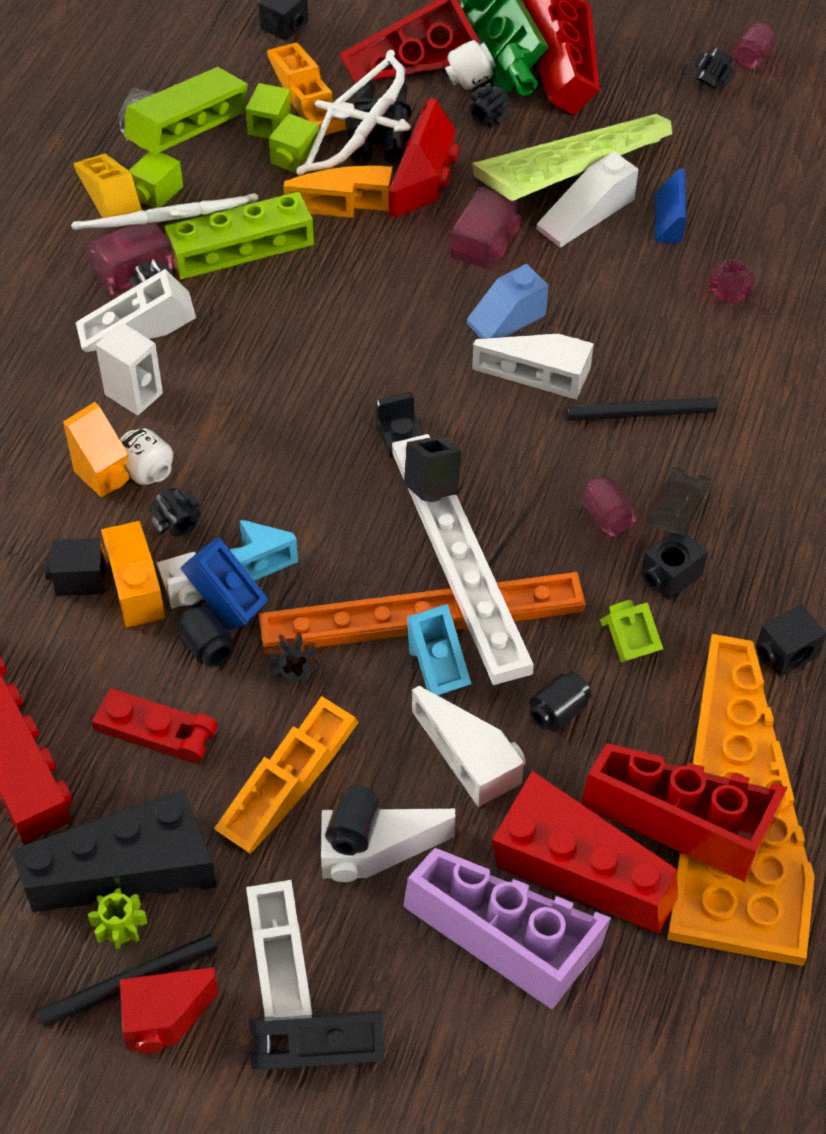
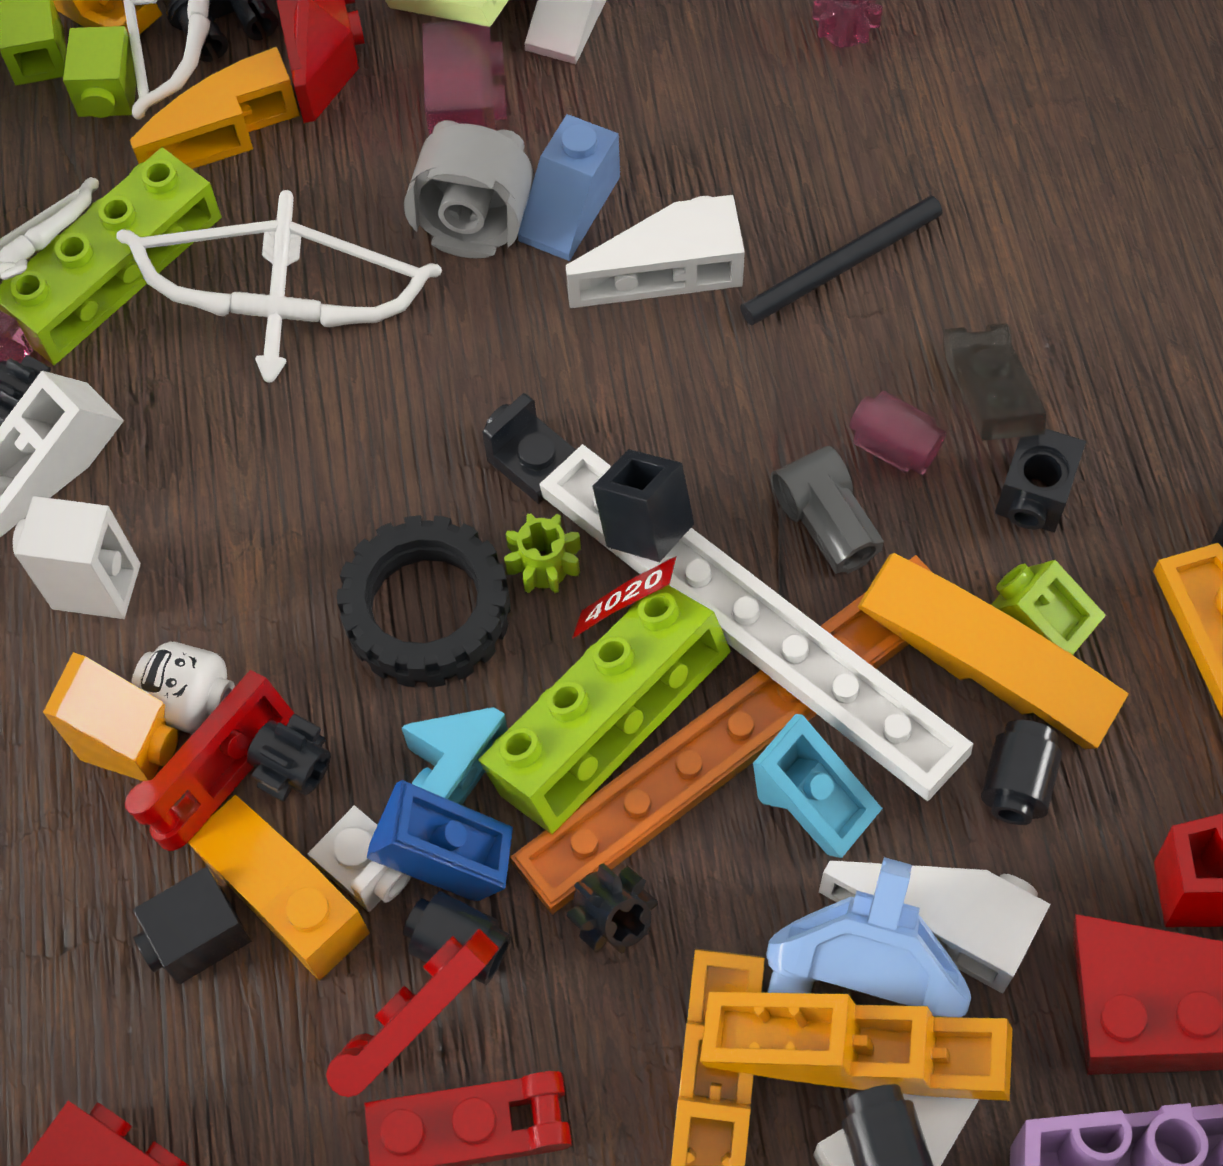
camera: 25 degrees left, 10 degrees up
(131, 496) = (207, 764): none -> red plate
(158, 651) = (409, 1014): none -> red plate
(296, 504) = (410, 544): none -> black tyre
(330, 268) = (281, 249): none -> white piece
(354, 562) = (605, 706): none -> lime brick
(359, 760) = (857, 1046): none -> light orange slope
(371, 477) = (546, 536): none -> lime gear
(412, 734) = (872, 948): none -> light blue connector
(417, 510) = (625, 595): none -> red sticker
(449, 280) = (469, 188): none -> light grey brick
(543, 519) = (821, 496): none -> dark grey piece
(584, 635) = (993, 650): none -> light orange slope

